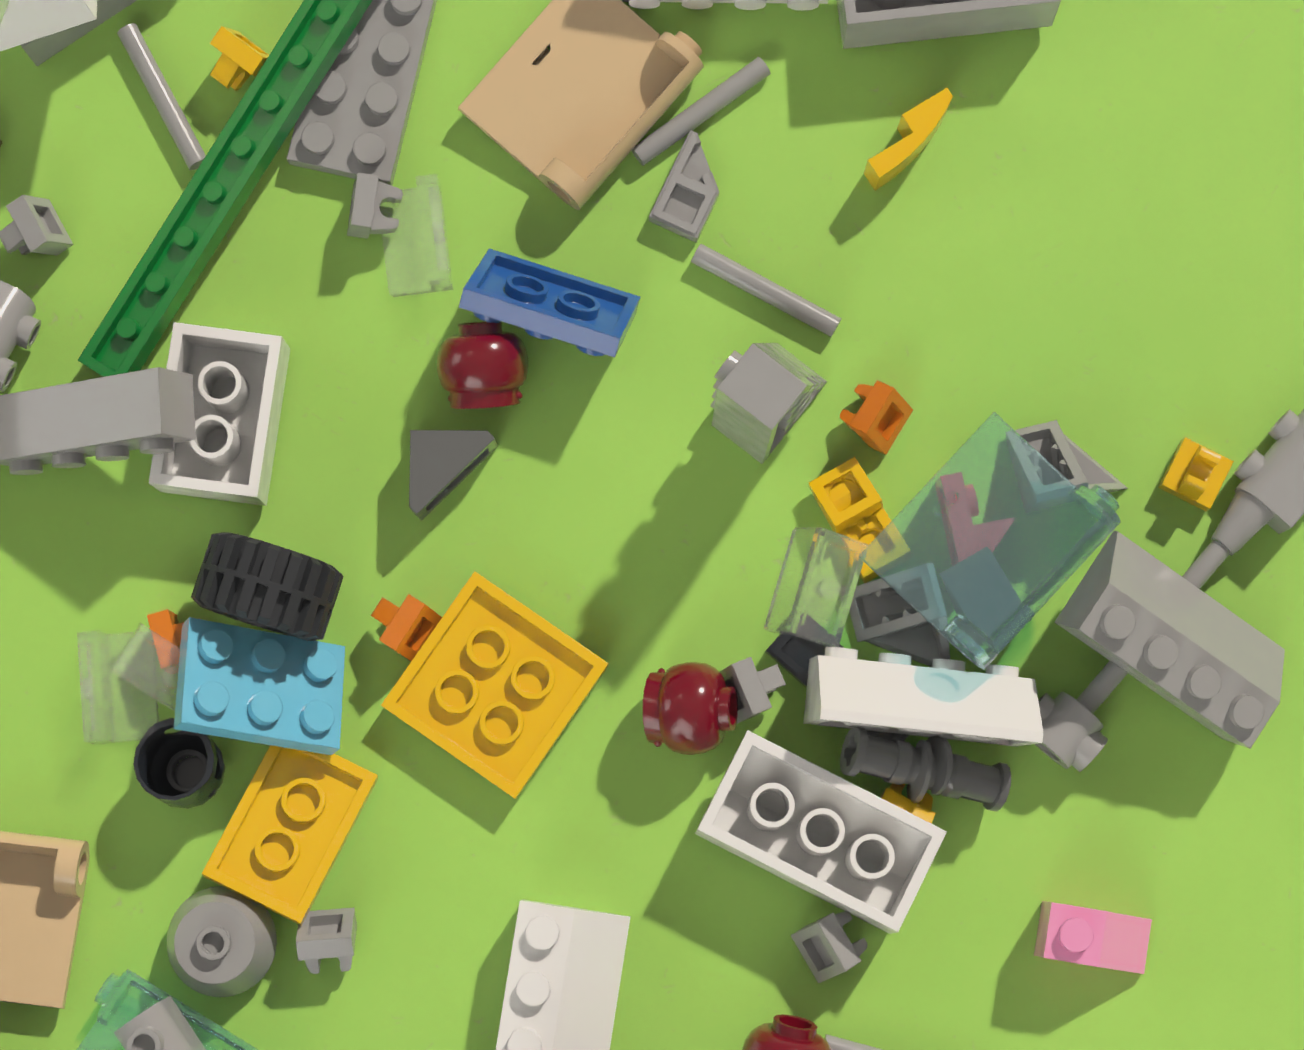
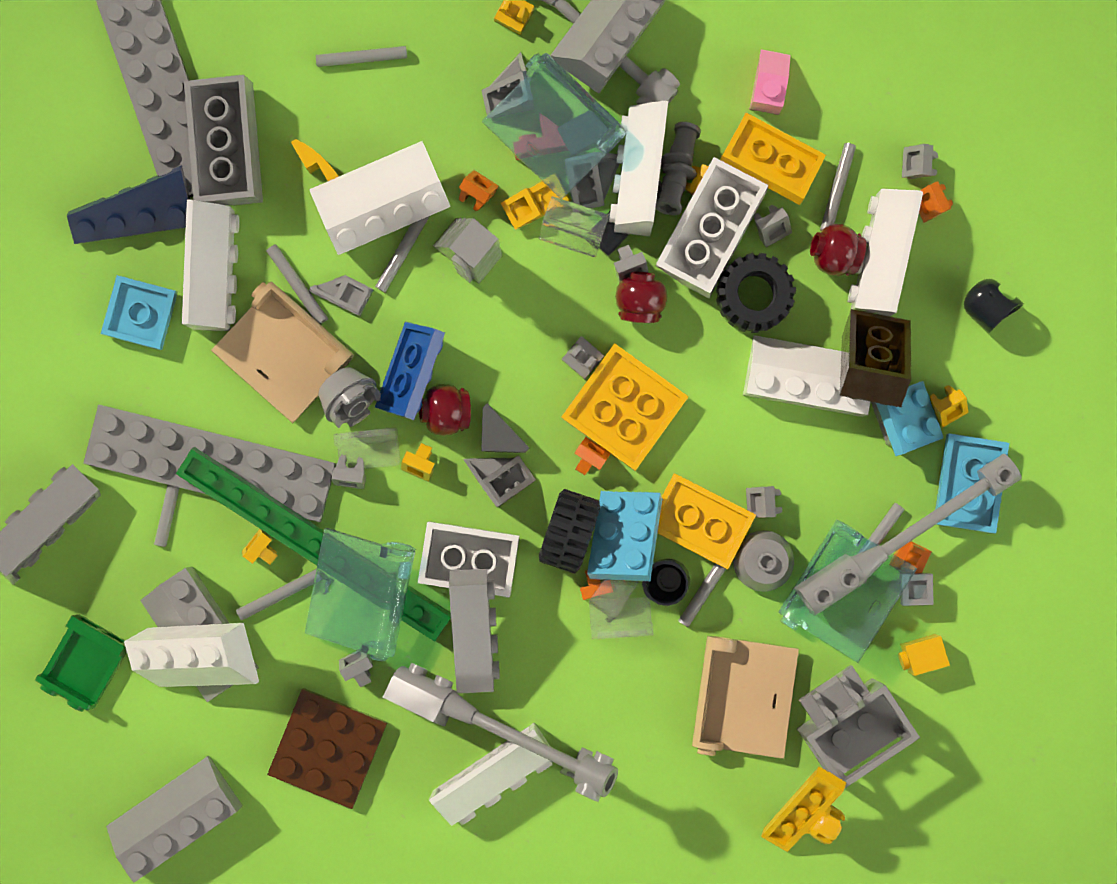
camera: 90 degrees left, 5 degrees up
(157, 227) = (364, 594): none -> clear light blue door
(158, 829) = (701, 595): none -> light grey bar
(367, 466) = (500, 477): none -> light grey slope
(391, 326) = (418, 463): none -> yellow tile
(502, 197) = (347, 396): none -> light grey cone
(583, 609) = (582, 357): none -> light grey tile
(752, 927) = (770, 271): none -> black tyre
(853, 243) = (379, 198): none -> white slope
(950, 943) = (773, 158): none -> yellow plate
(1106, 210) = (361, 56): none -> light grey bar

